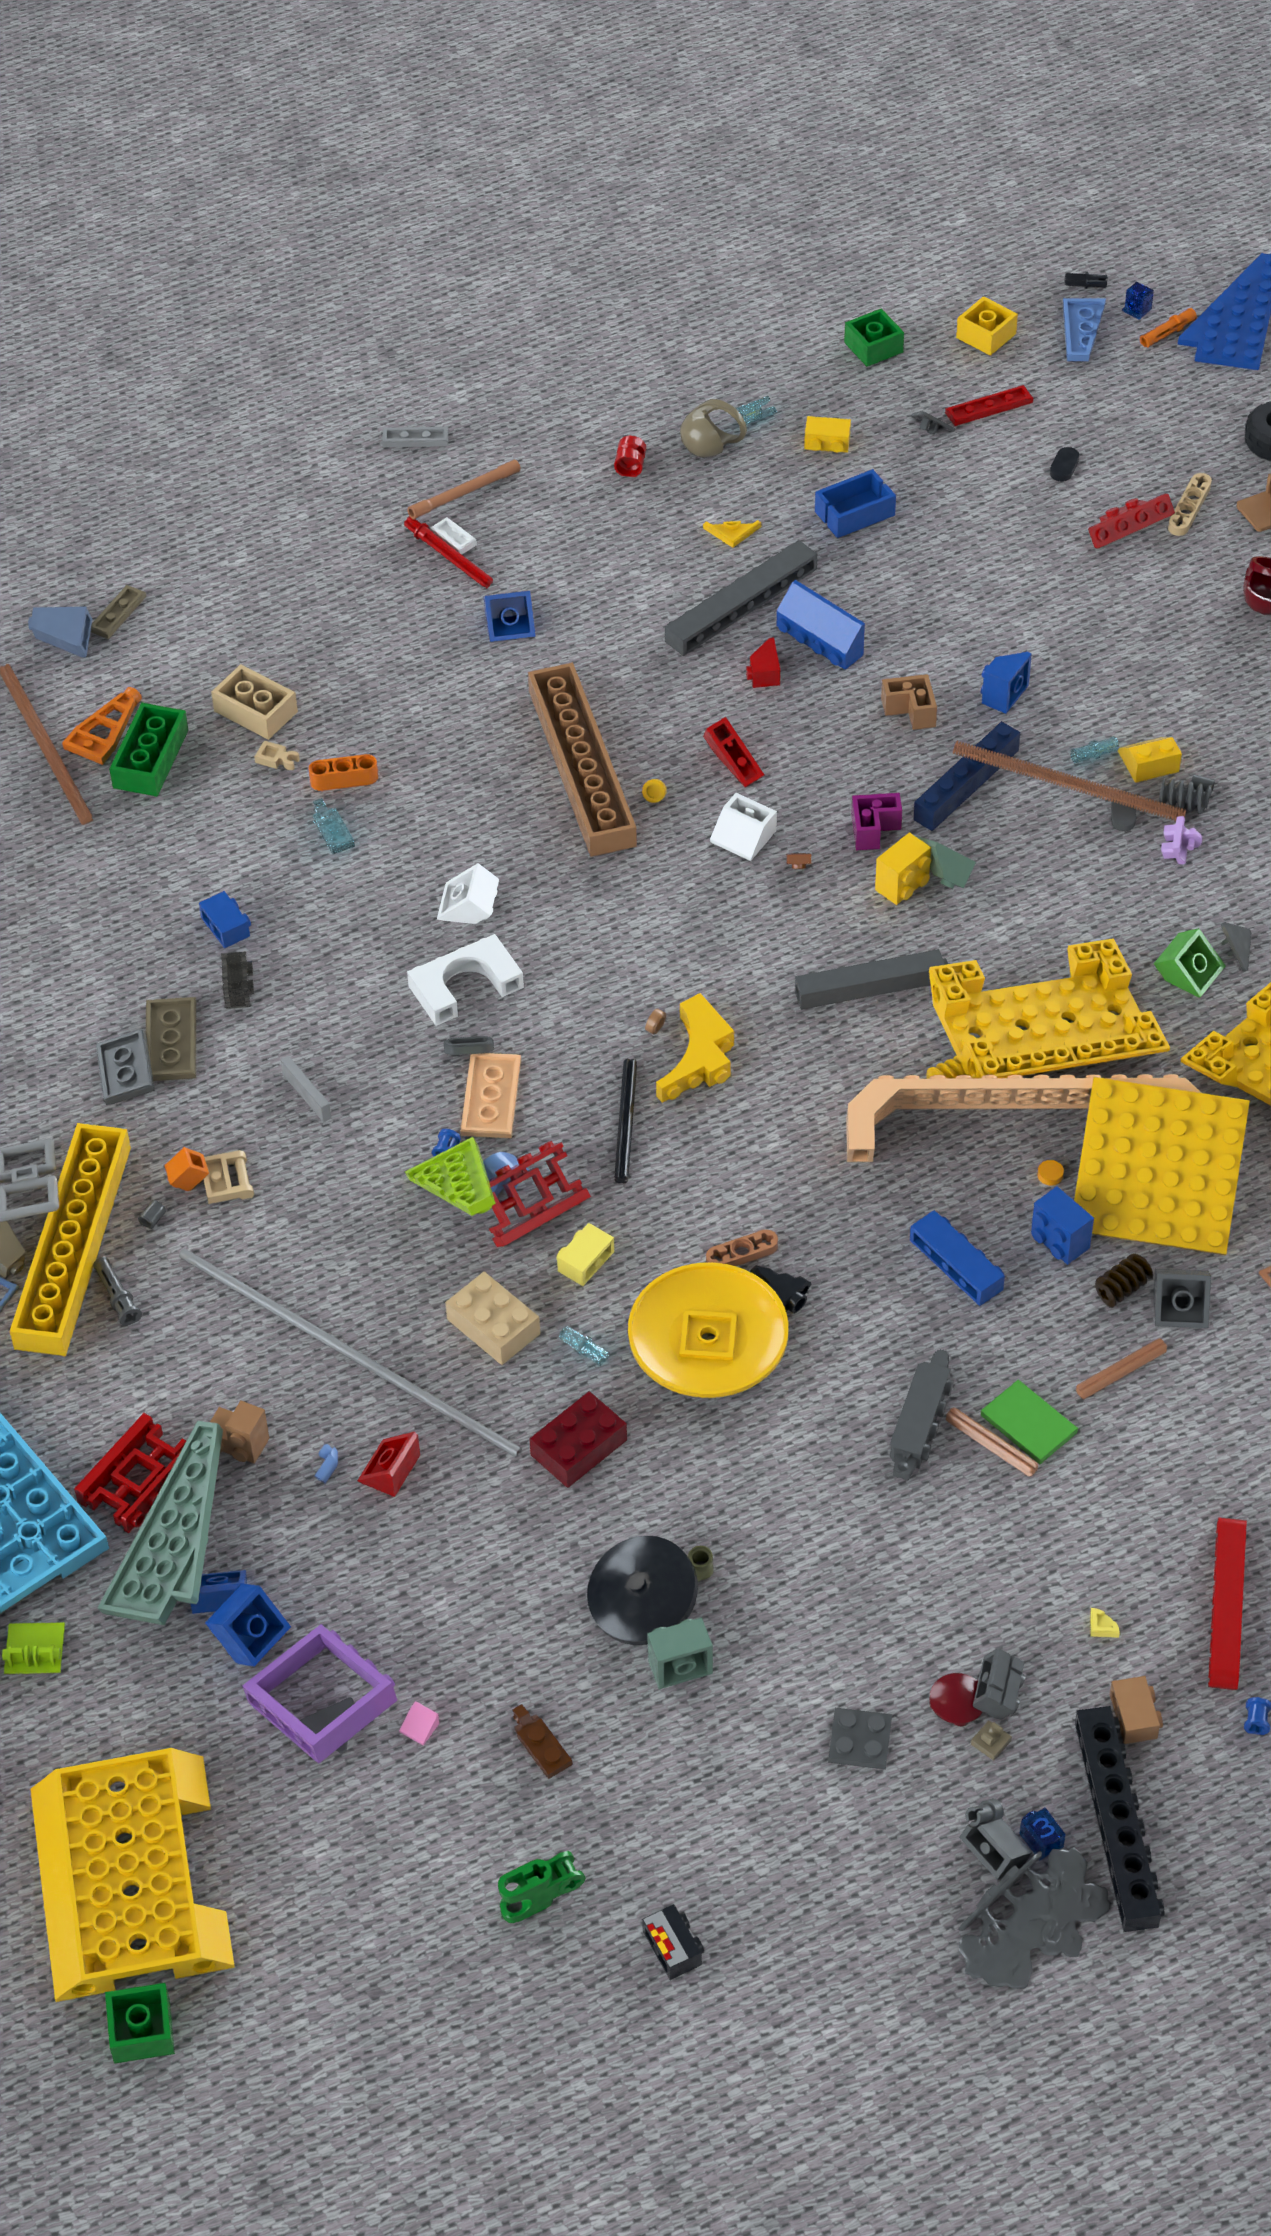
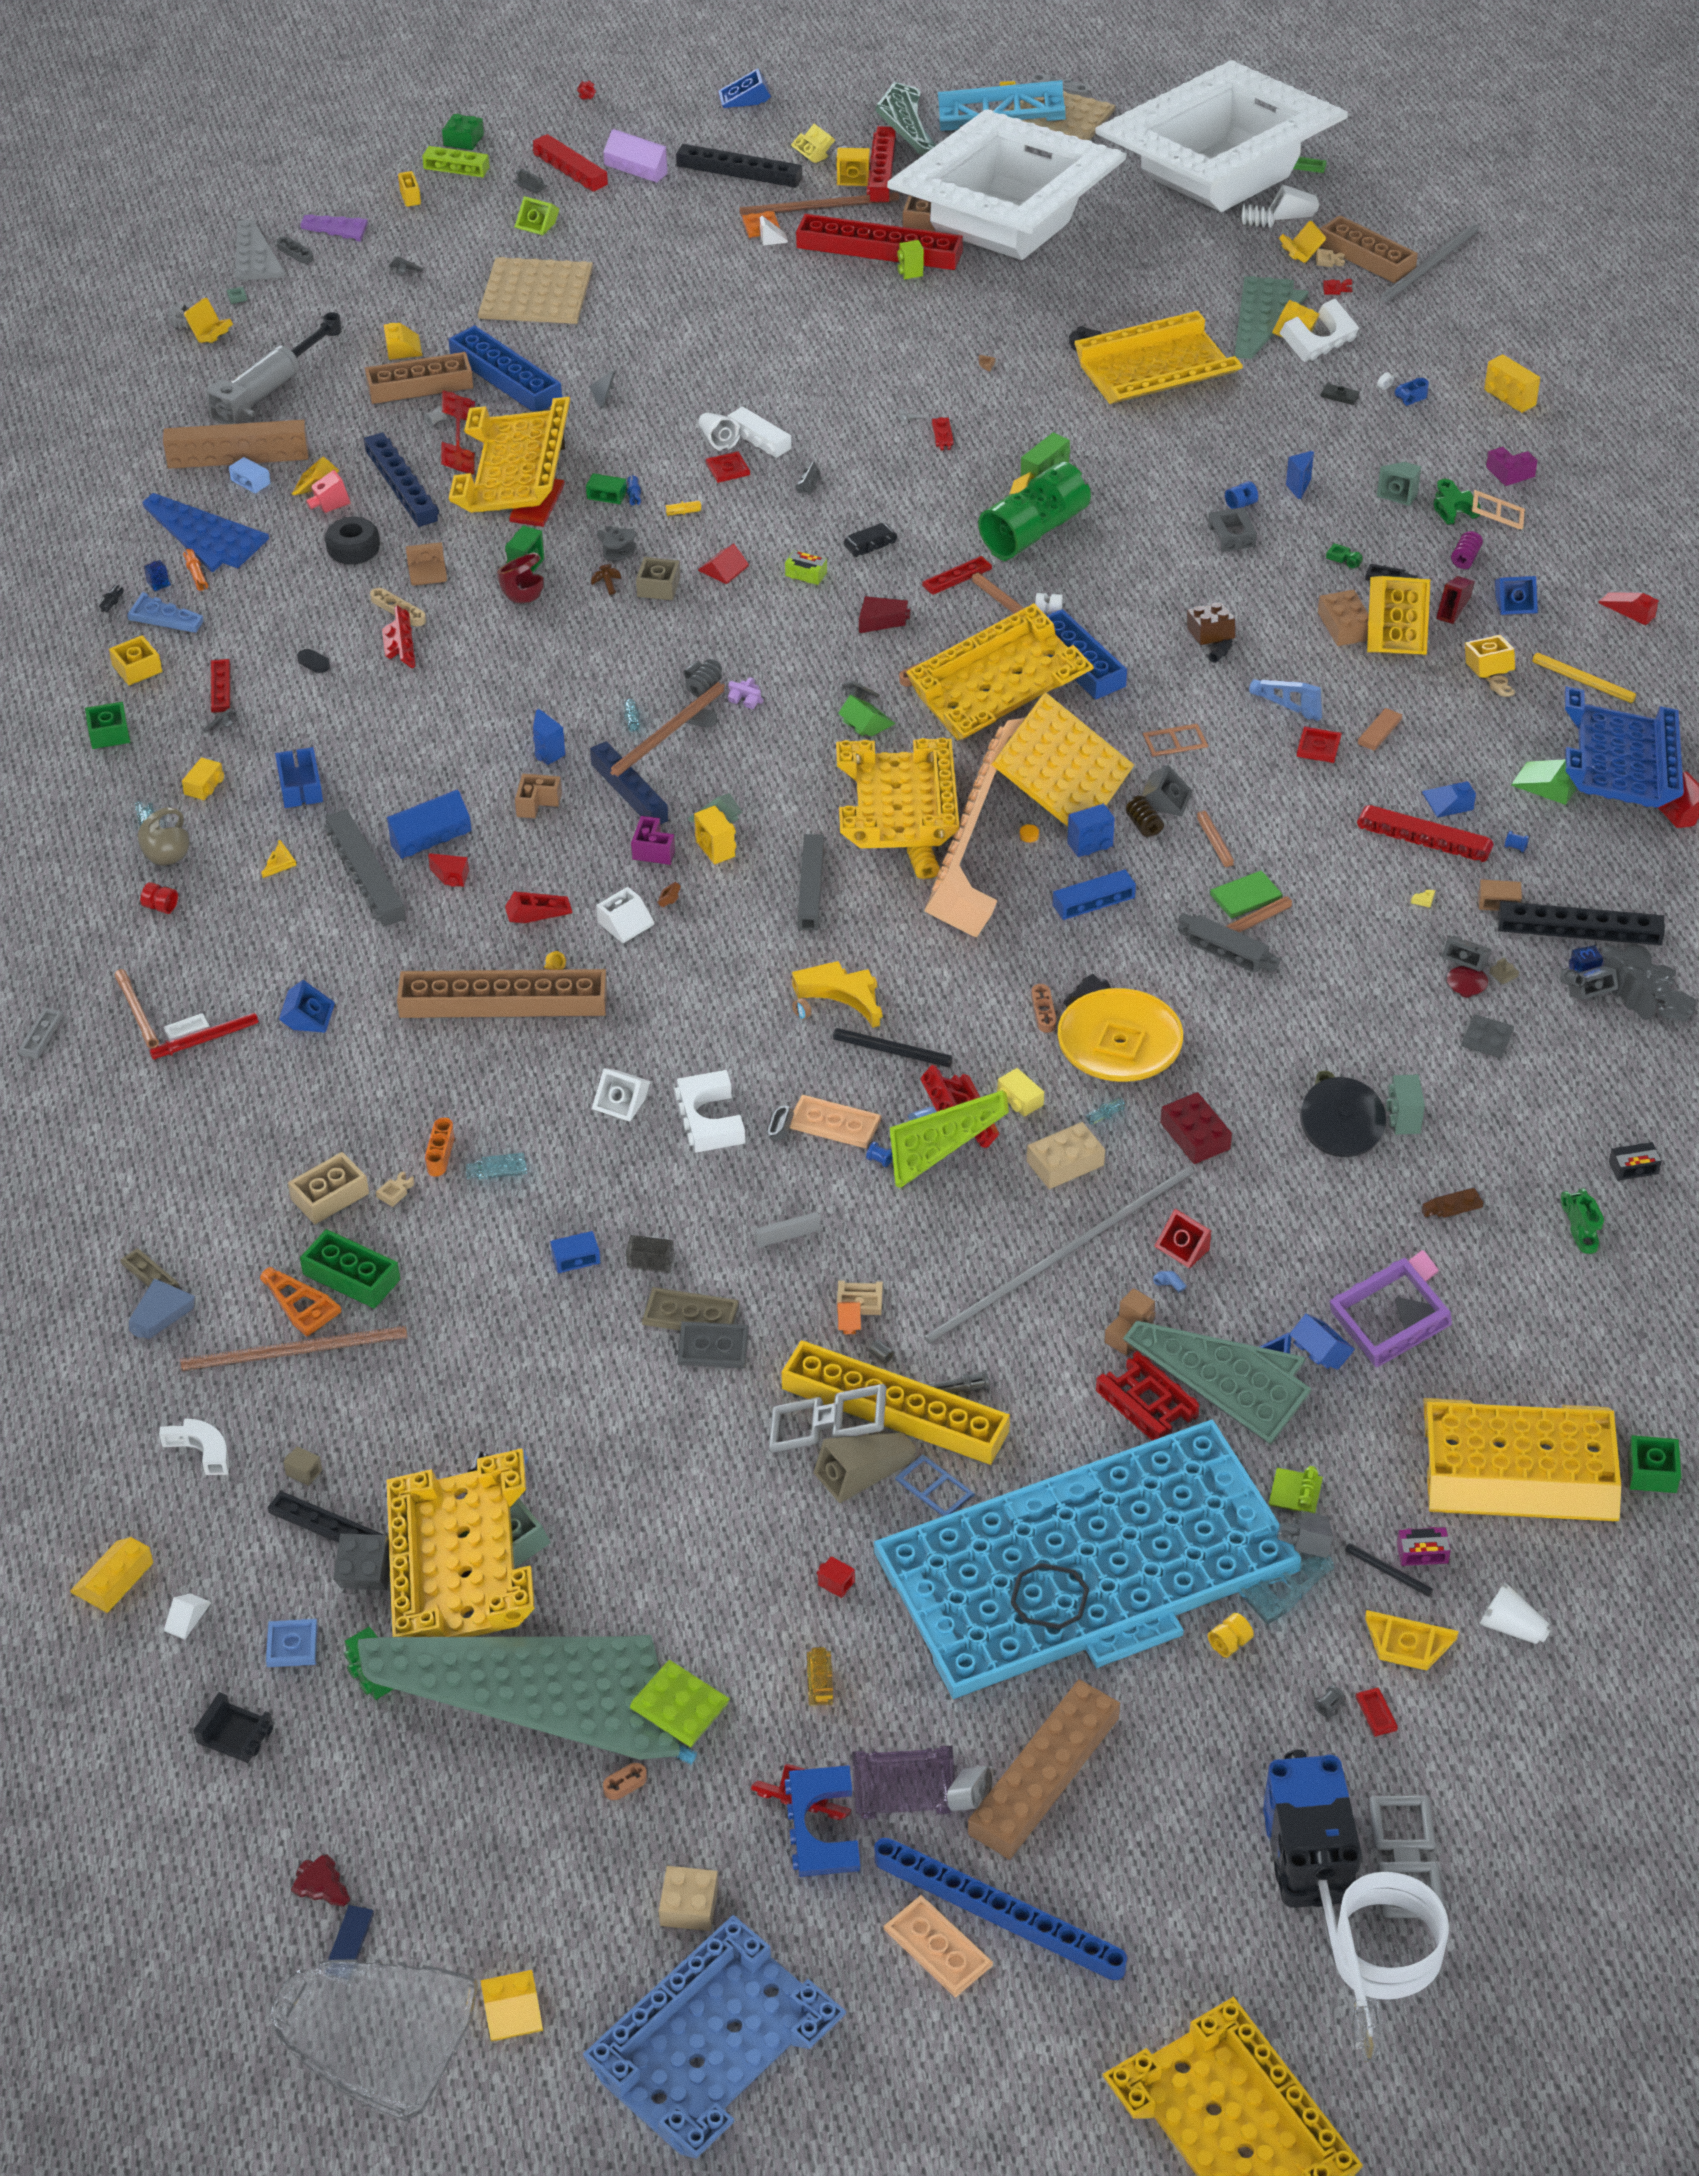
camera: 75 degrees left, 5 degrees down
(1151, 758) = (653, 687): yellow slope -> none

